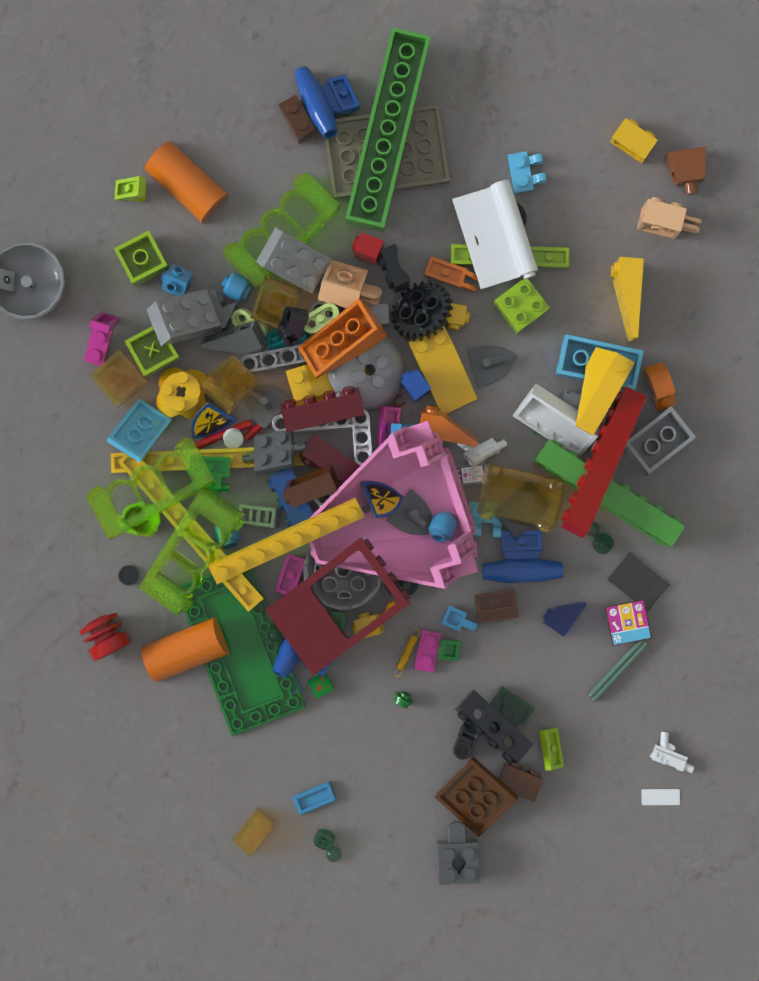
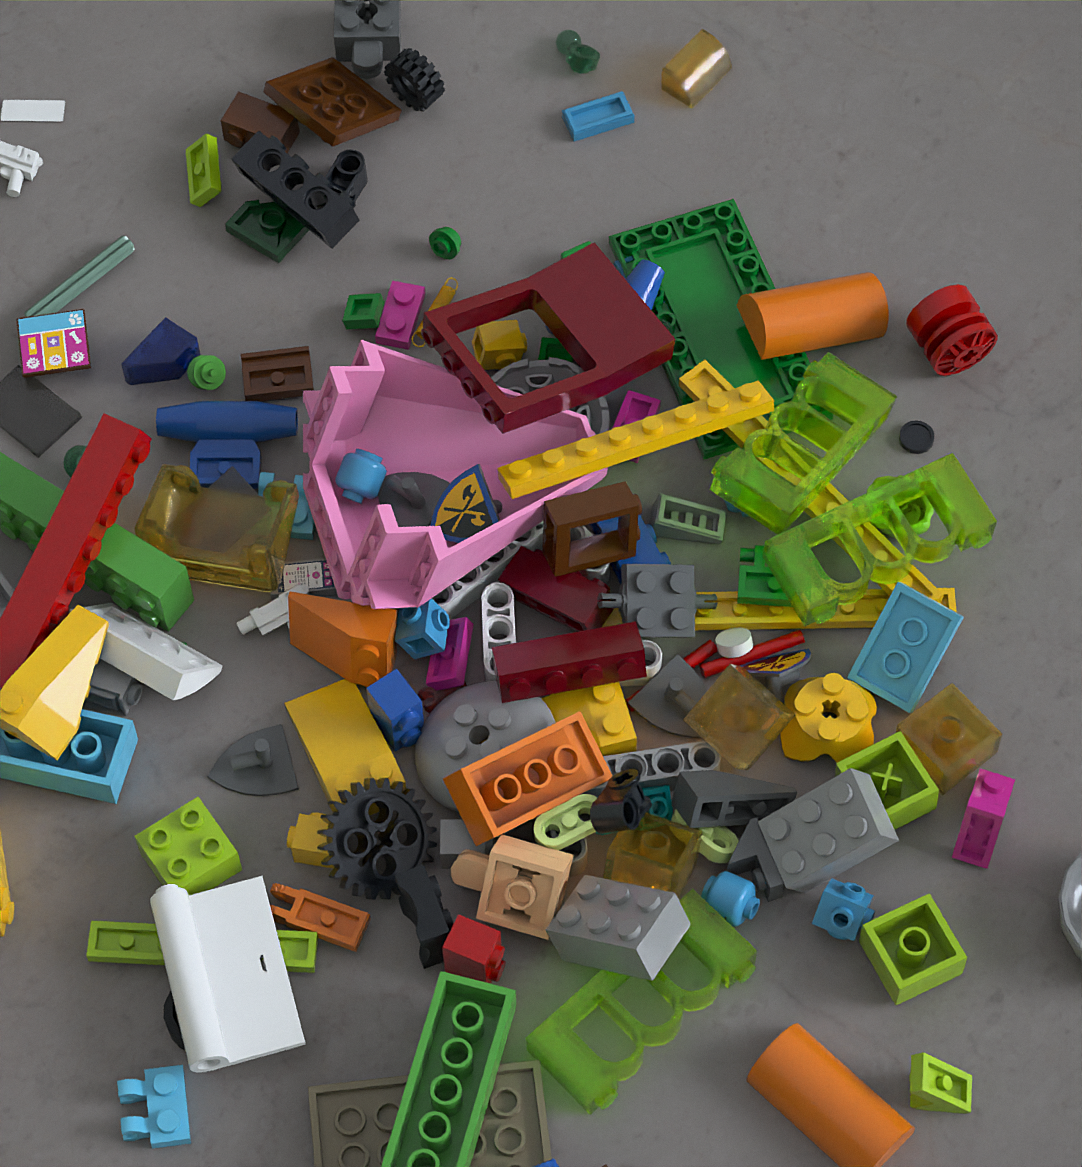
camera: 175 degrees left, 25 degrees down
(427, 814) = (414, 79): none -> black tyre
(456, 619) = (337, 352): dark azure plate -> none
(537, 605) = (206, 372): none -> bright green wheel

